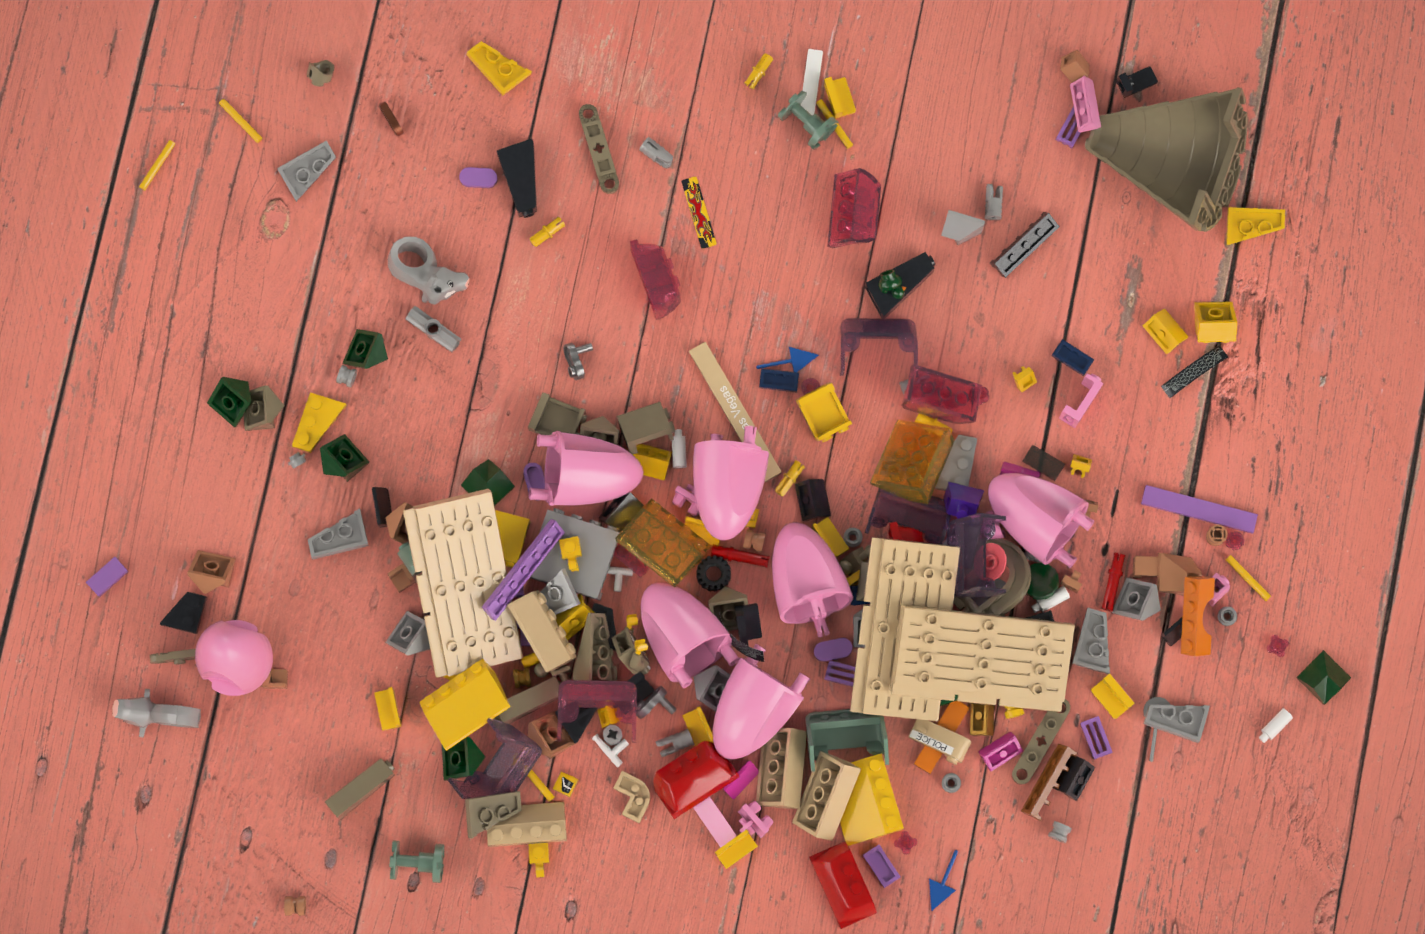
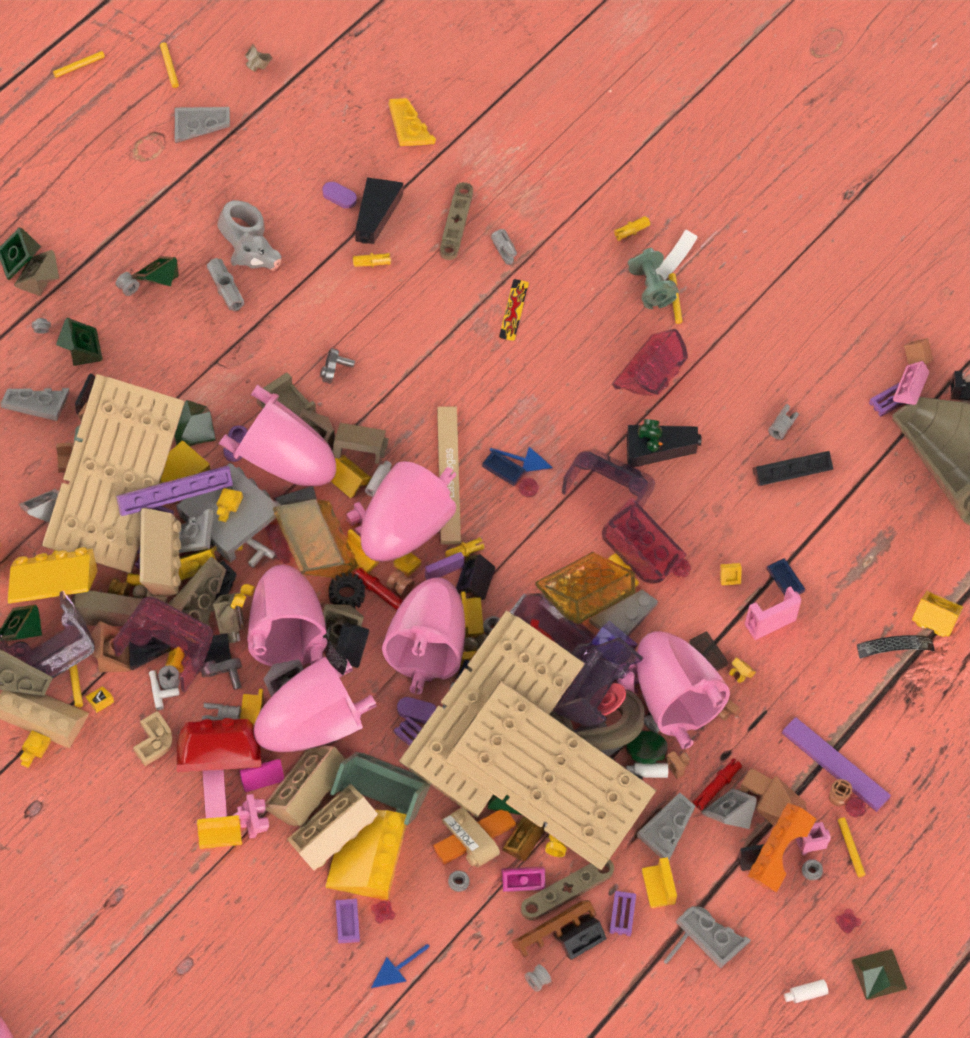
camera: 25 degrees right, 20 degrees down
(315, 421) = (79, 304): yellow wing -> none
(391, 119) = (294, 117): copper tile -> none
(656, 277) = (444, 335): clear pink windscreen -> none
(782, 504) = (444, 566): none -> medium lavender tile
(823, 412) = (528, 509): yellow panel -> none
(839, 97) = (692, 280): yellow panel -> none
(843, 884) = (300, 918): red windscreen -> none
(961, 227) = (744, 423): light grey slope -> none
(1165, 331) = (885, 598): yellow panel -> none

